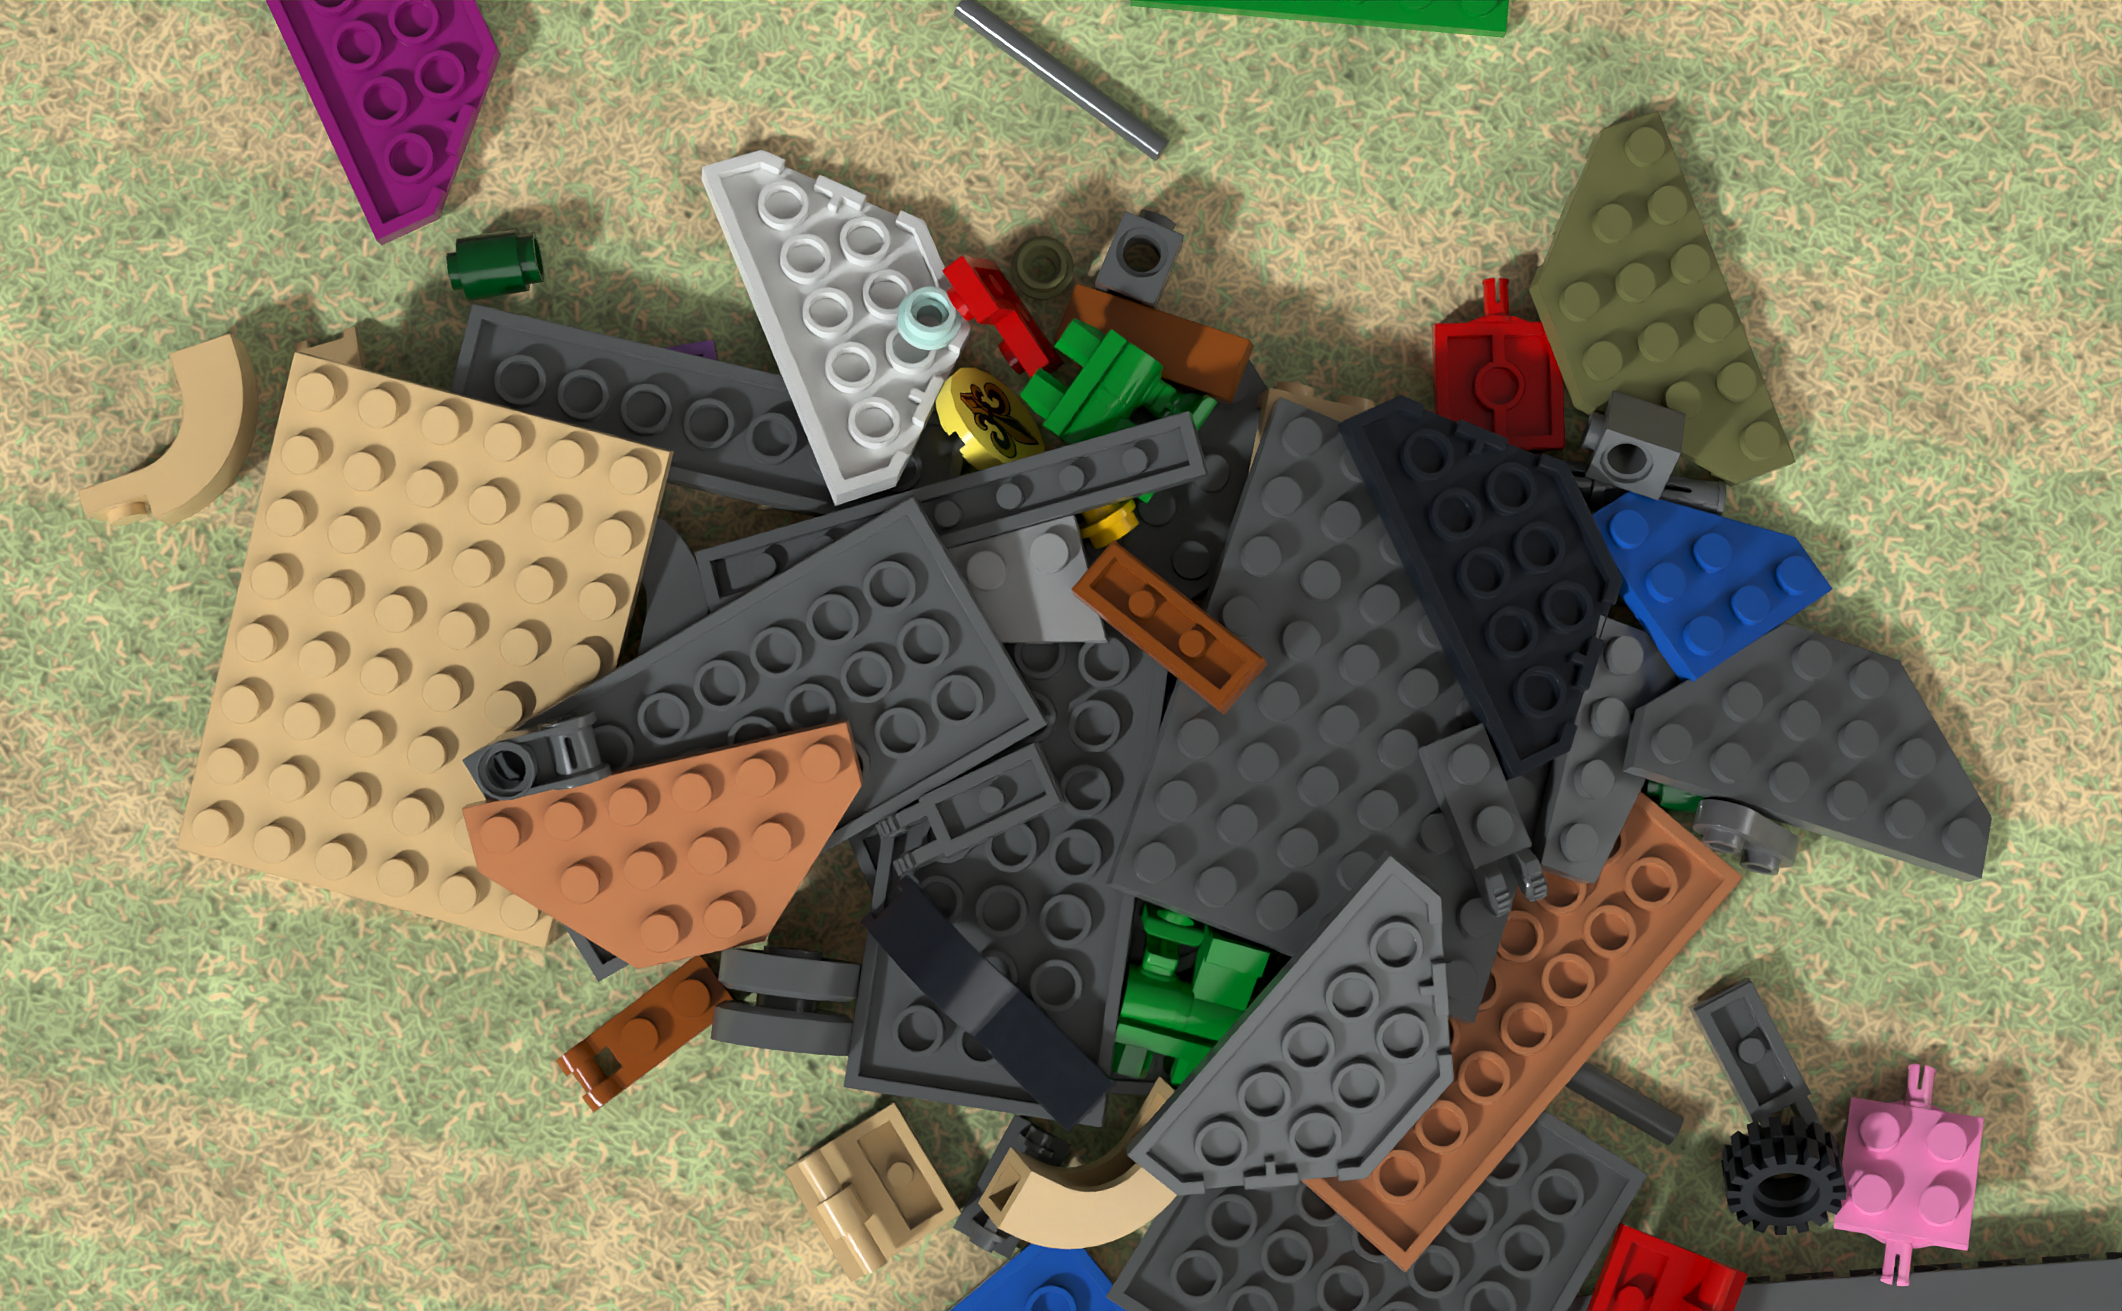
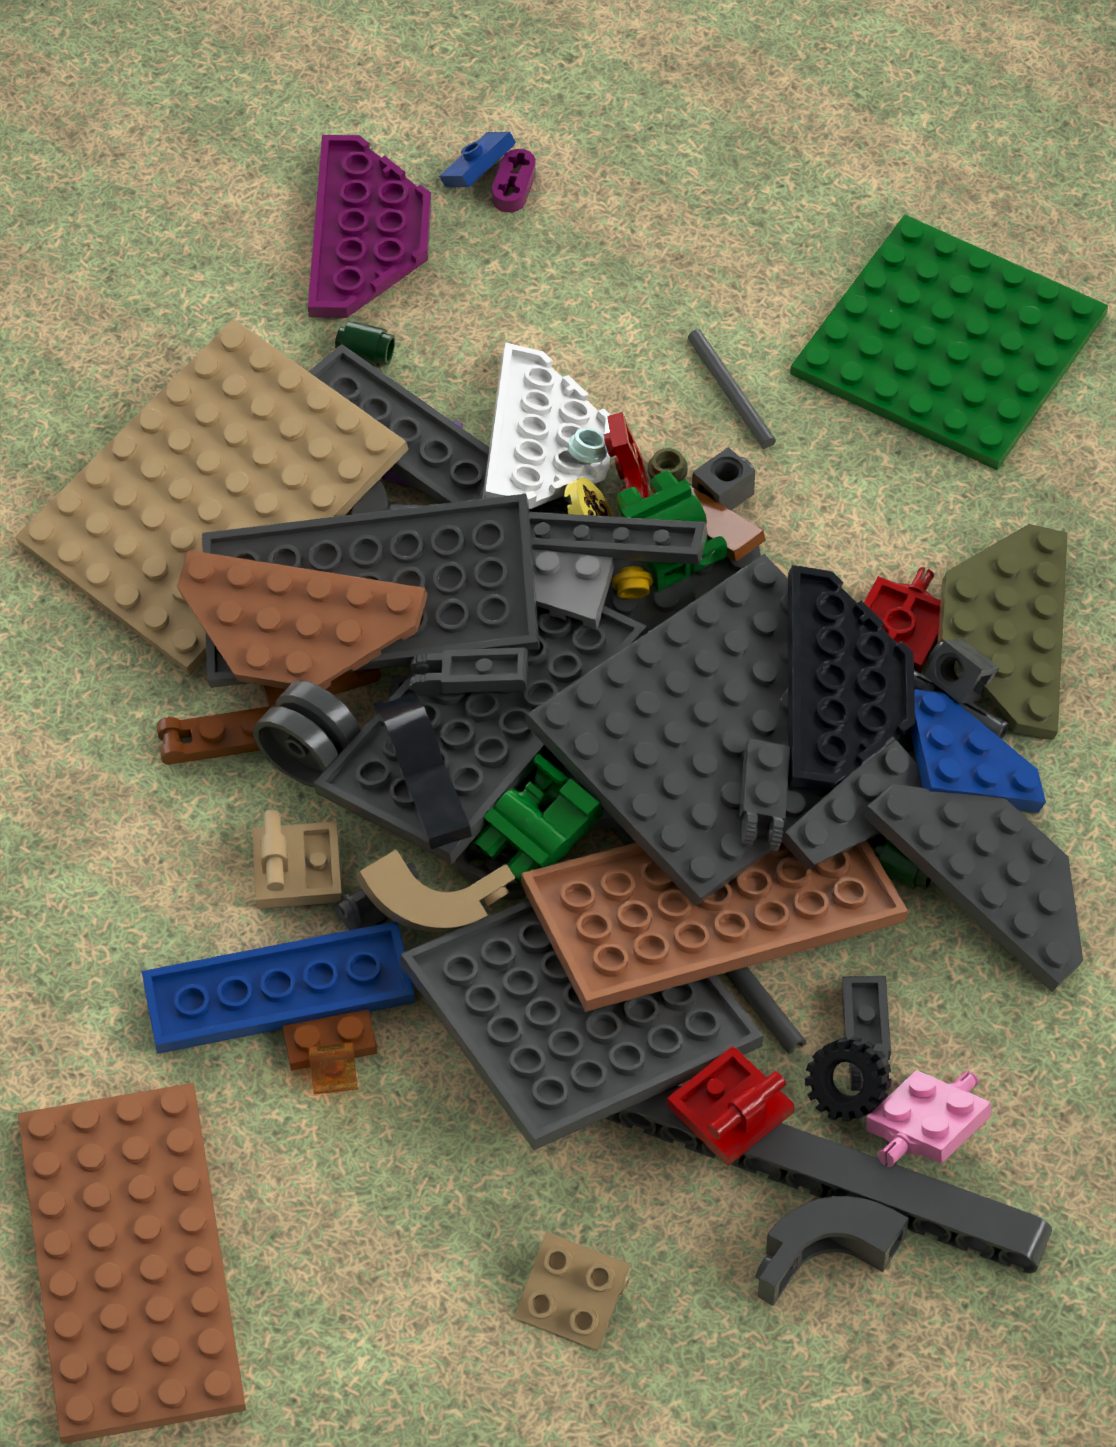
camera: 25 degrees right, 30 degrees down
(210, 446) = (149, 365): tan arch -> none
(555, 756) = (255, 536): dark grey piece -> none
(1169, 627) = (634, 617): dark orange tile -> none
(1324, 1058) = (600, 861): dark grey plate -> none
(1747, 834) = (923, 894): flat silver plate -> none

